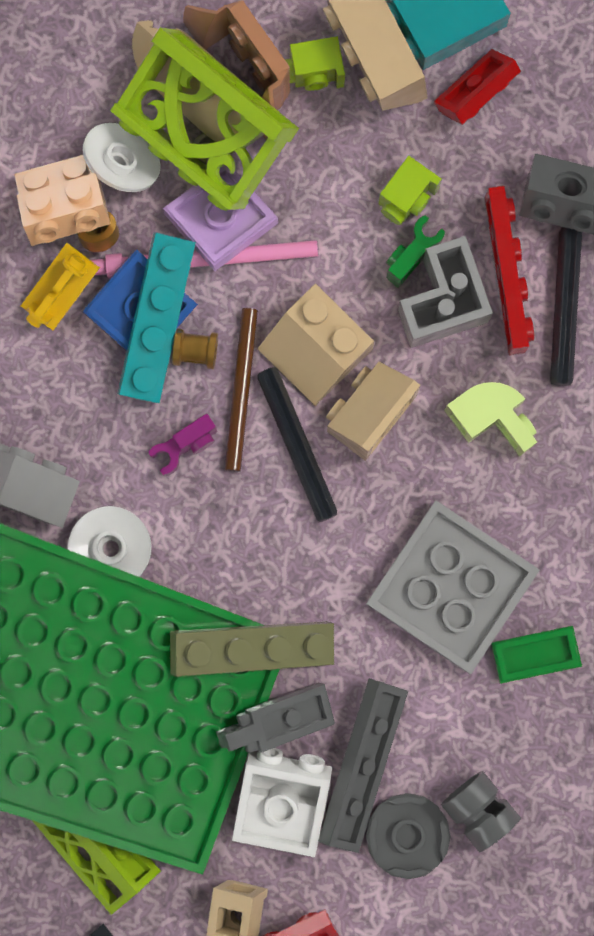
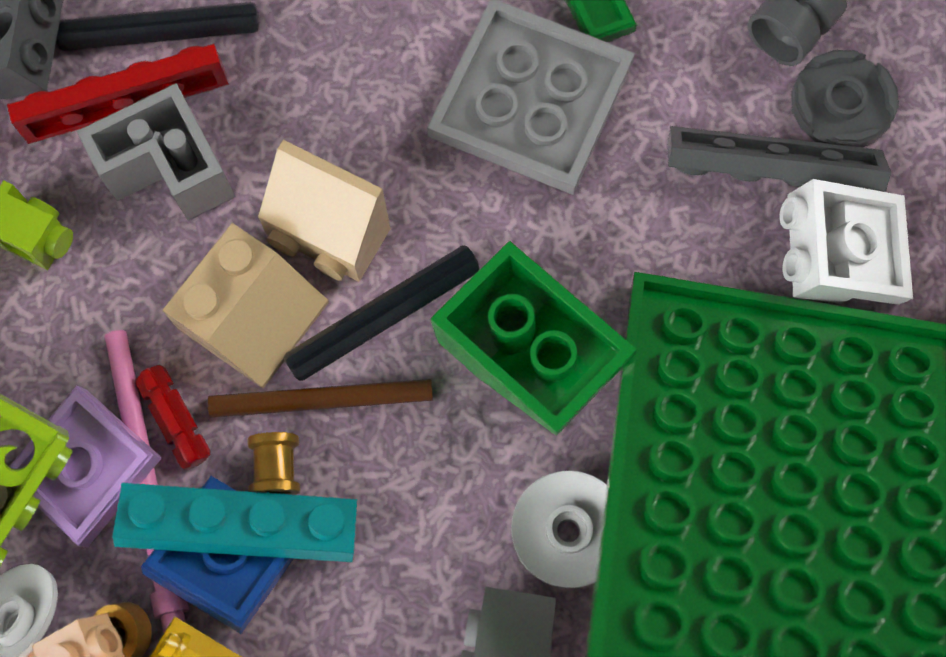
camera: 100 degrees left, 10 degrees down
(193, 437) = (397, 443): magenta plate -> none
(244, 544) = (530, 339): none -> green slope
(246, 282) = (172, 417): none -> red axle
(251, 648) = (668, 311): olive plate -> none
(279, 720) = (750, 265): dark grey hinge -> none
(405, 260) = (118, 213): green plate -> none
(490, 405) = (300, 80): yellowish green brick -> none

